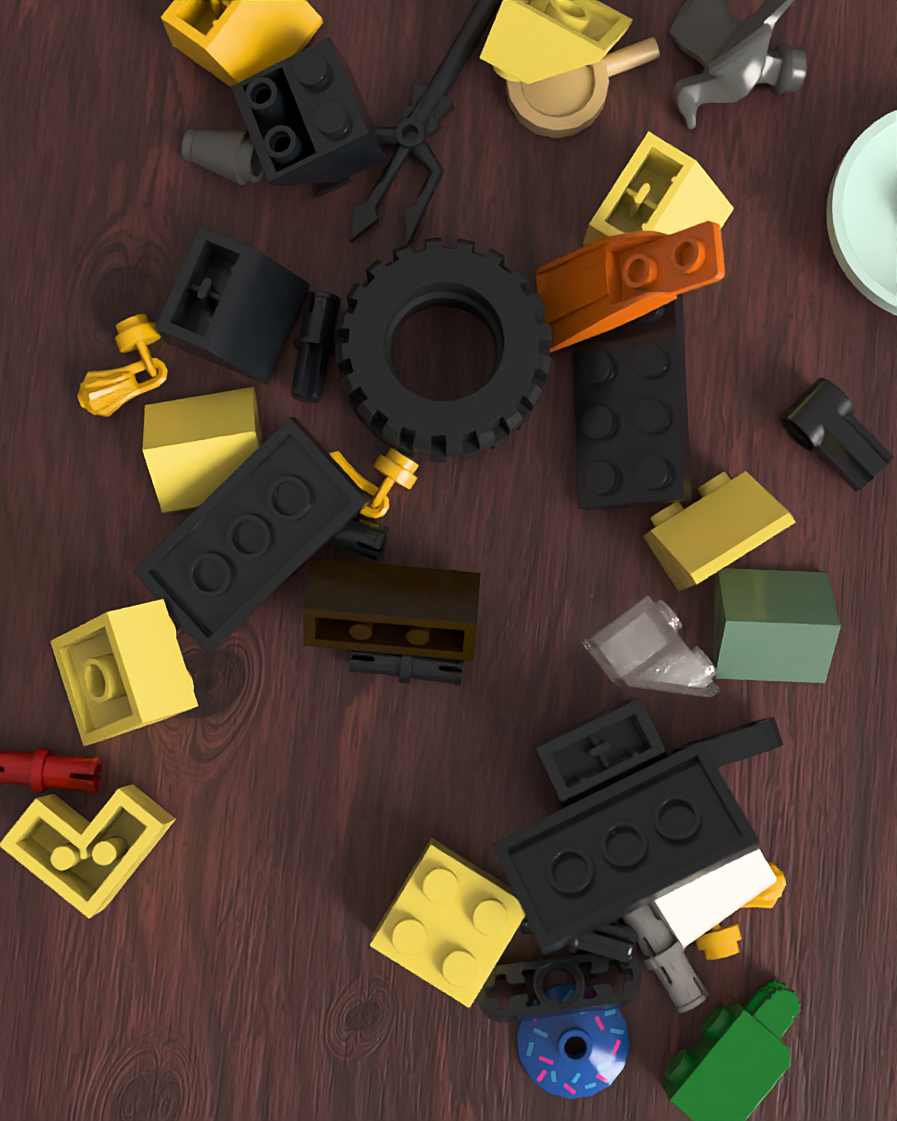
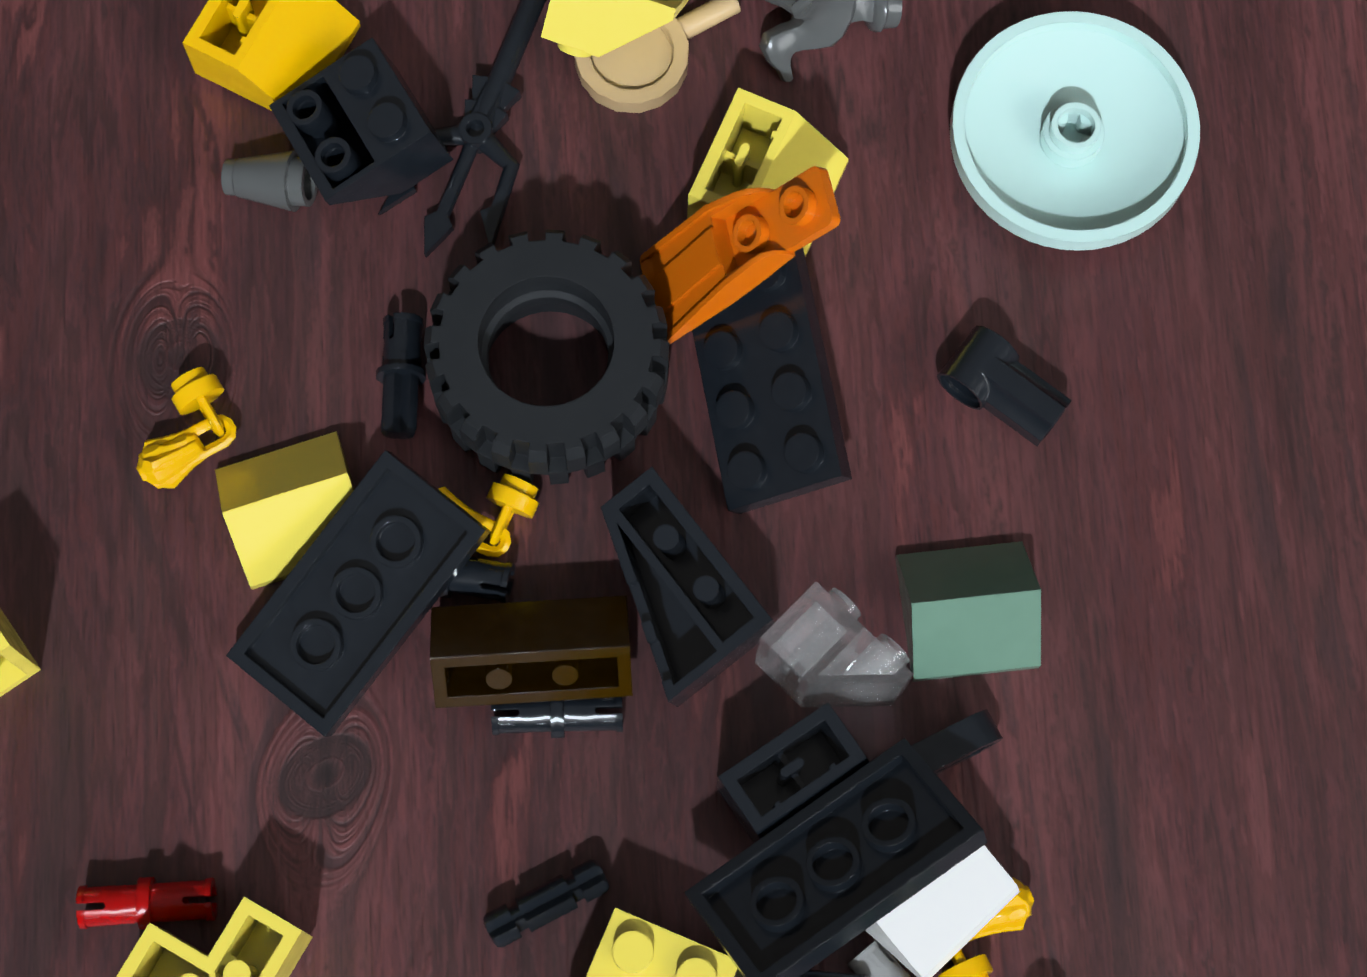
camera: 10 degrees left, 10 degrees down
(123, 671) = (229, 772): light yellow slope -> none
(232, 306) = (302, 343): black slope -> none
(374, 821) = (546, 903): none -> black axle
(529, 572) = (684, 589): none -> black wedge
(715, 529) = (883, 509): light yellow slope -> none

